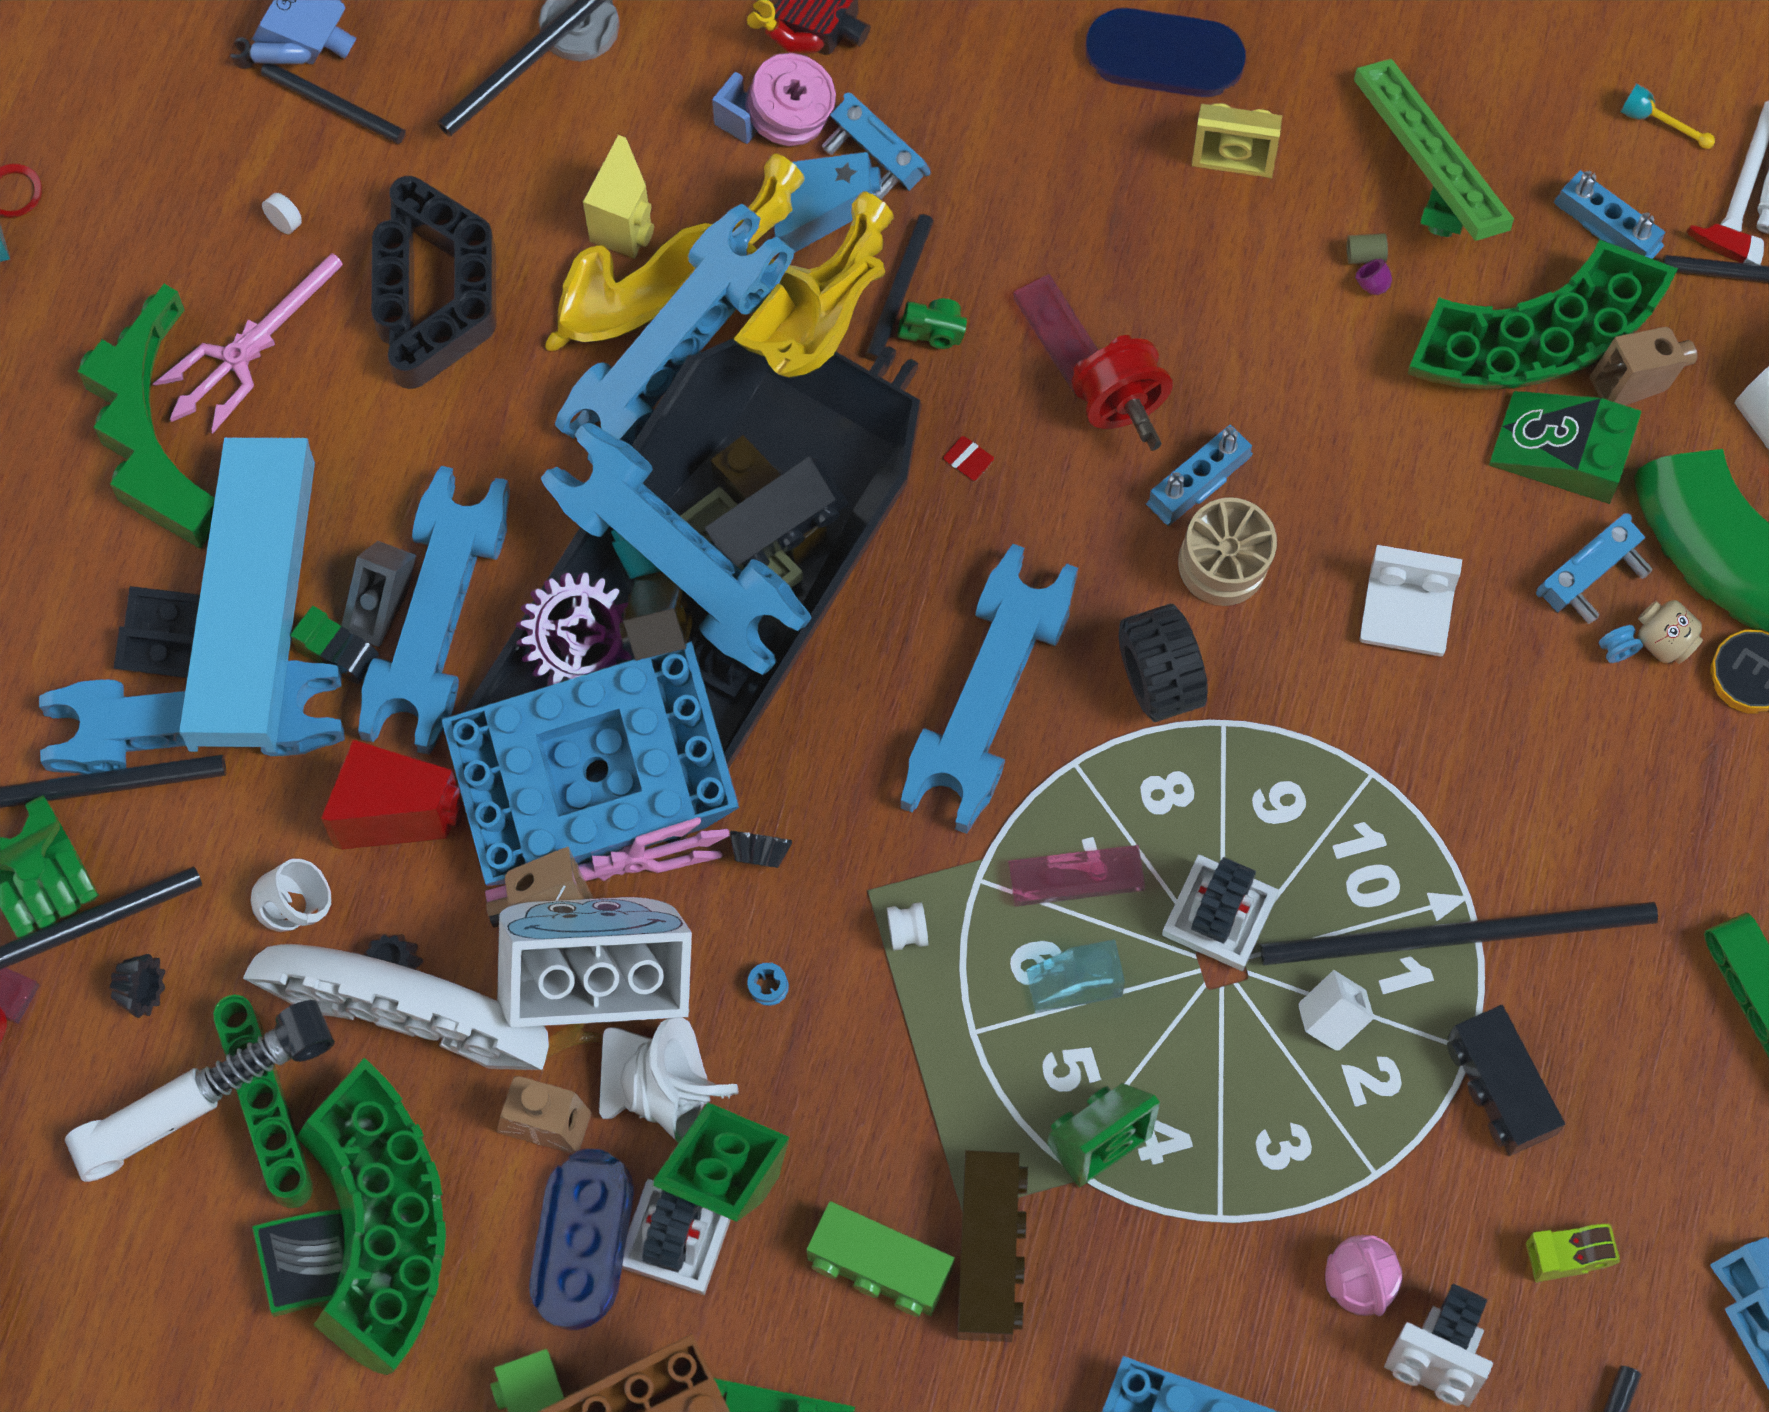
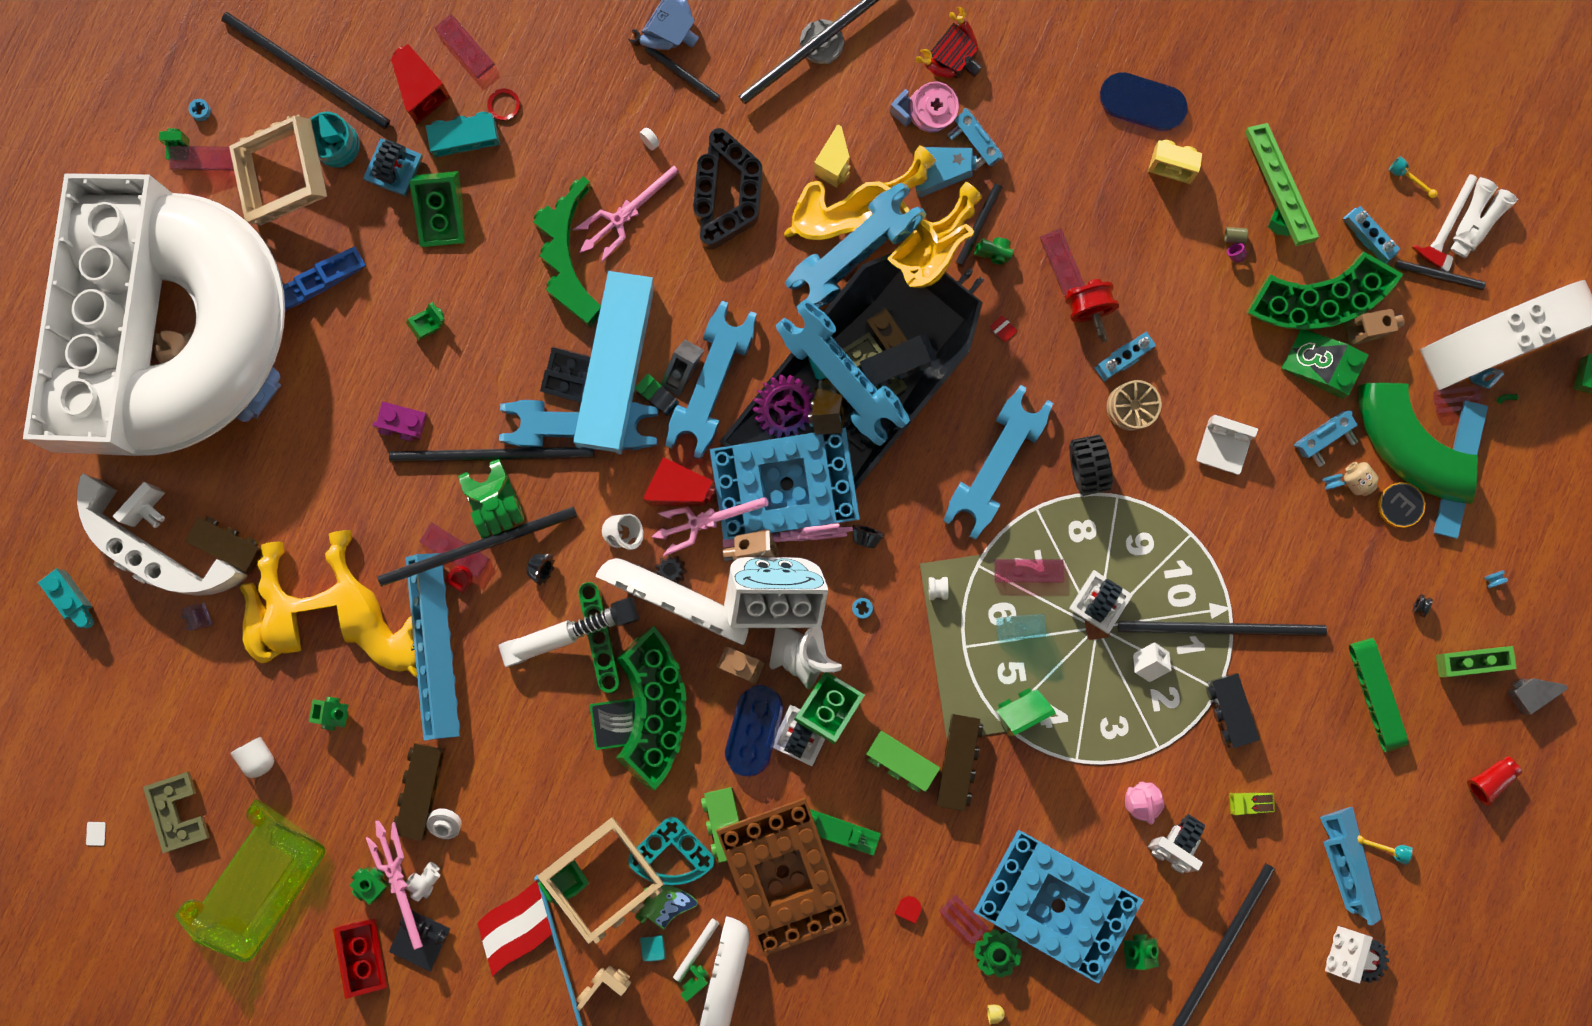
camera: 10 degrees right, 15 degrees up
(441, 855) = (703, 521): none -> bright pink piece

